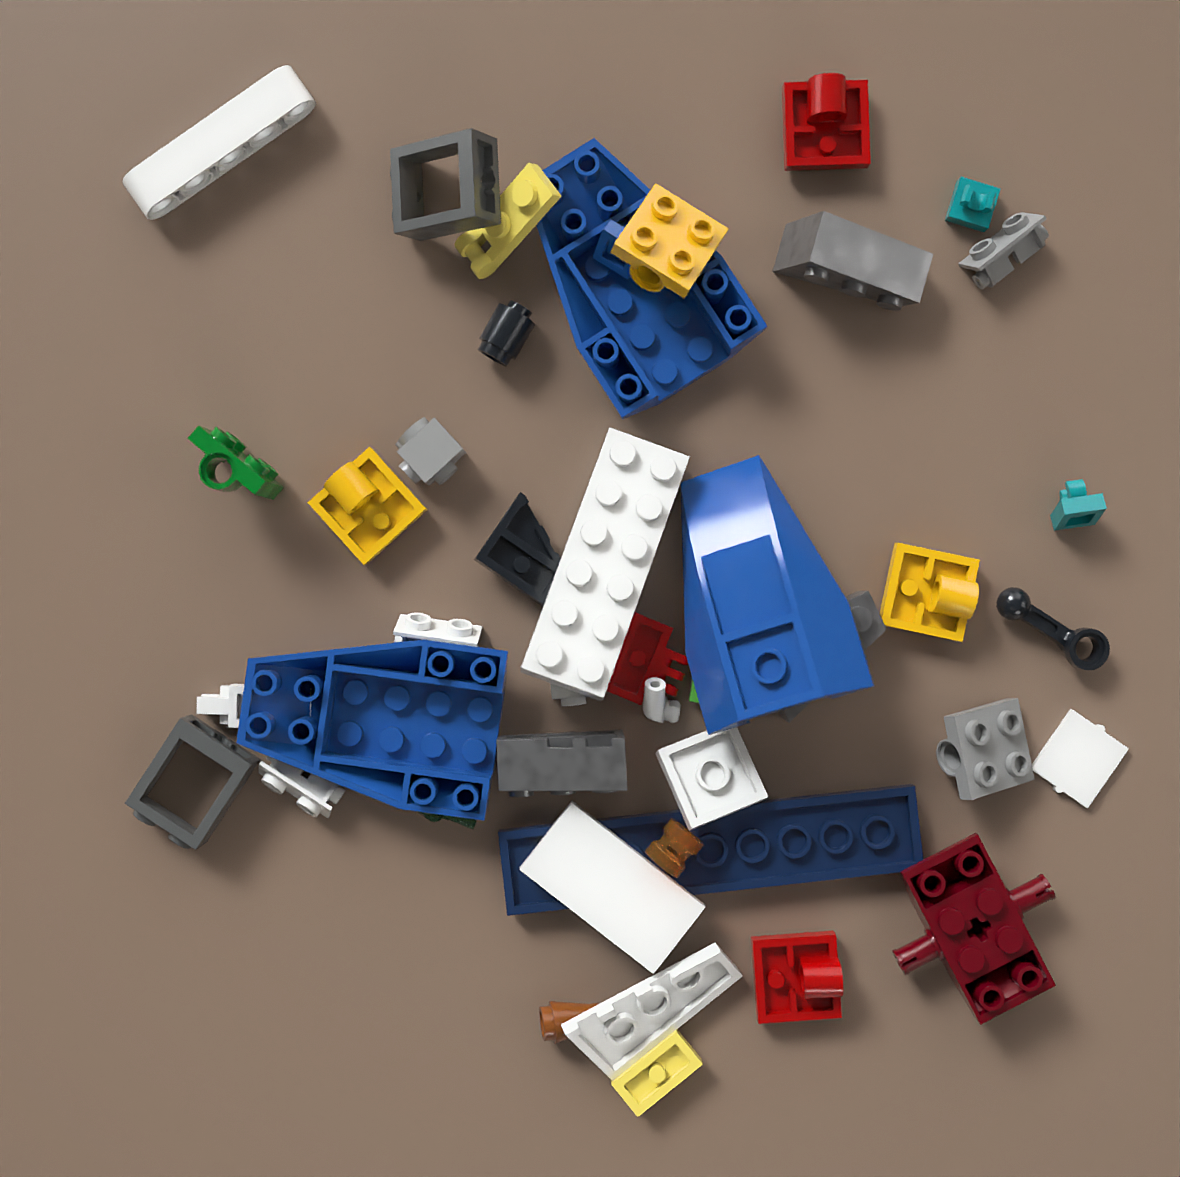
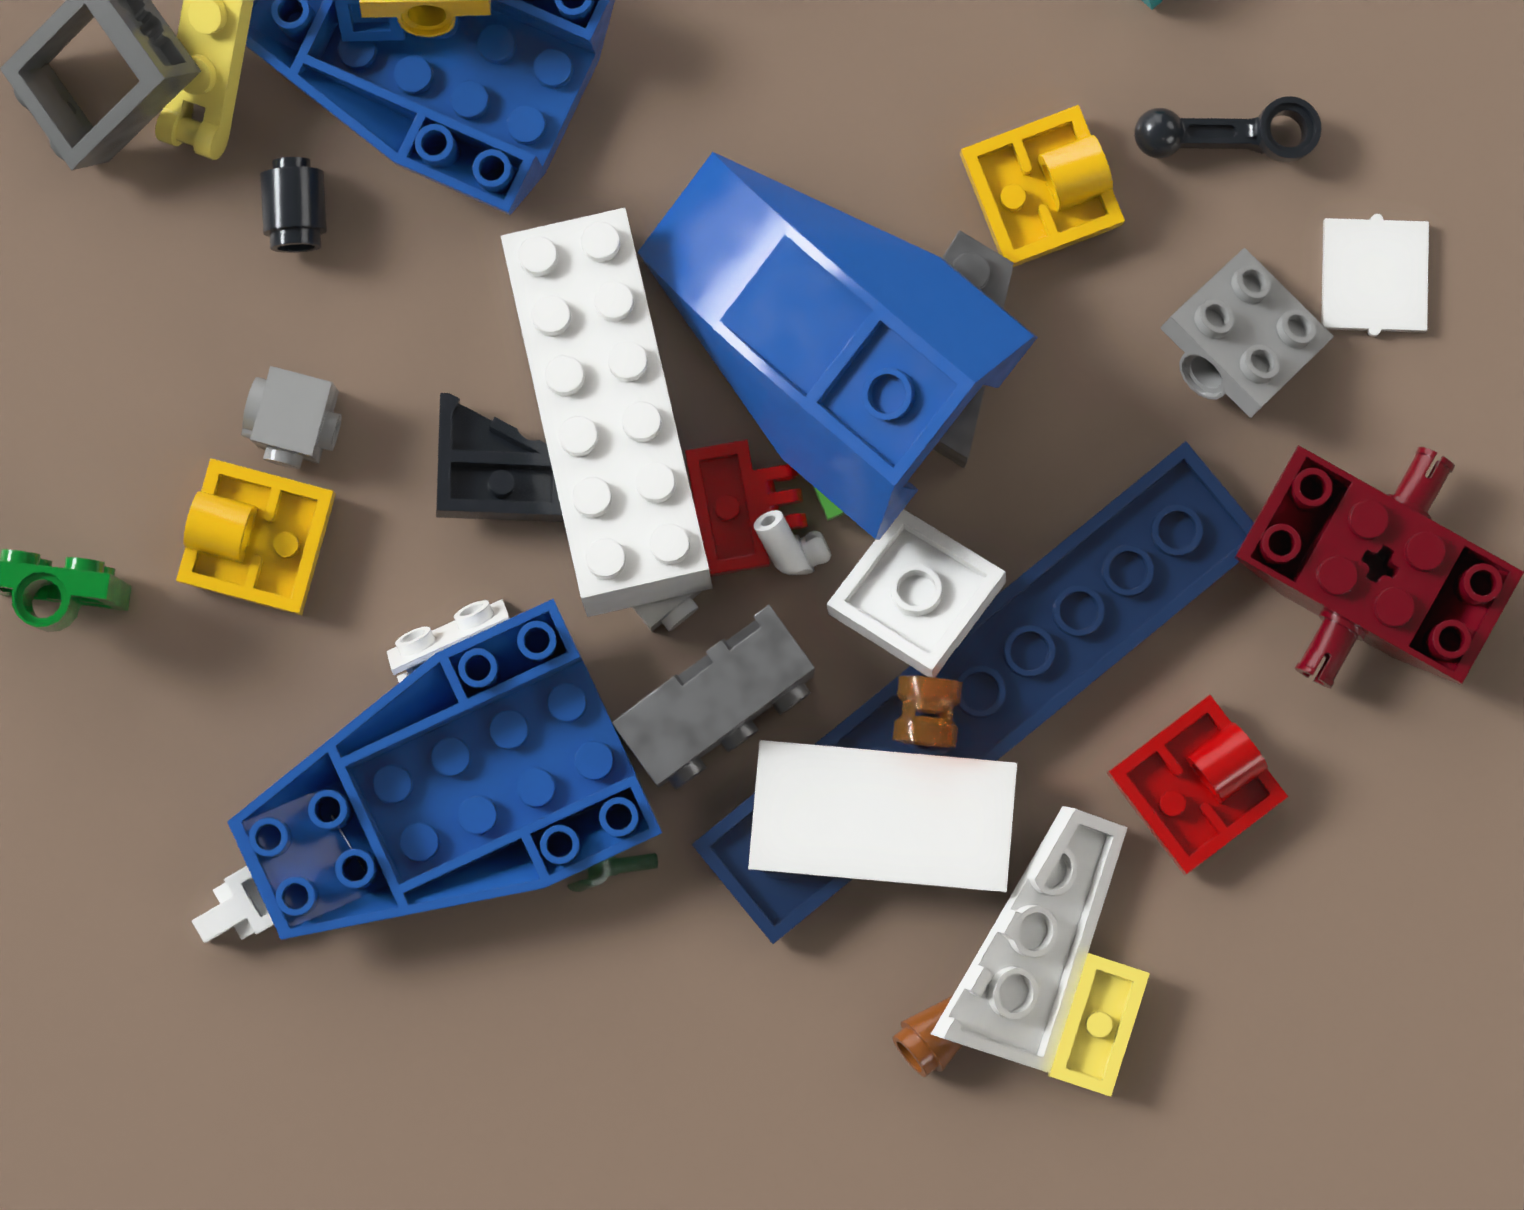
camera: 30 degrees left, 5 degrees down
(215, 747) = (280, 1110): dark grey window -> none
(311, 793) = (422, 954): white hinge -> none

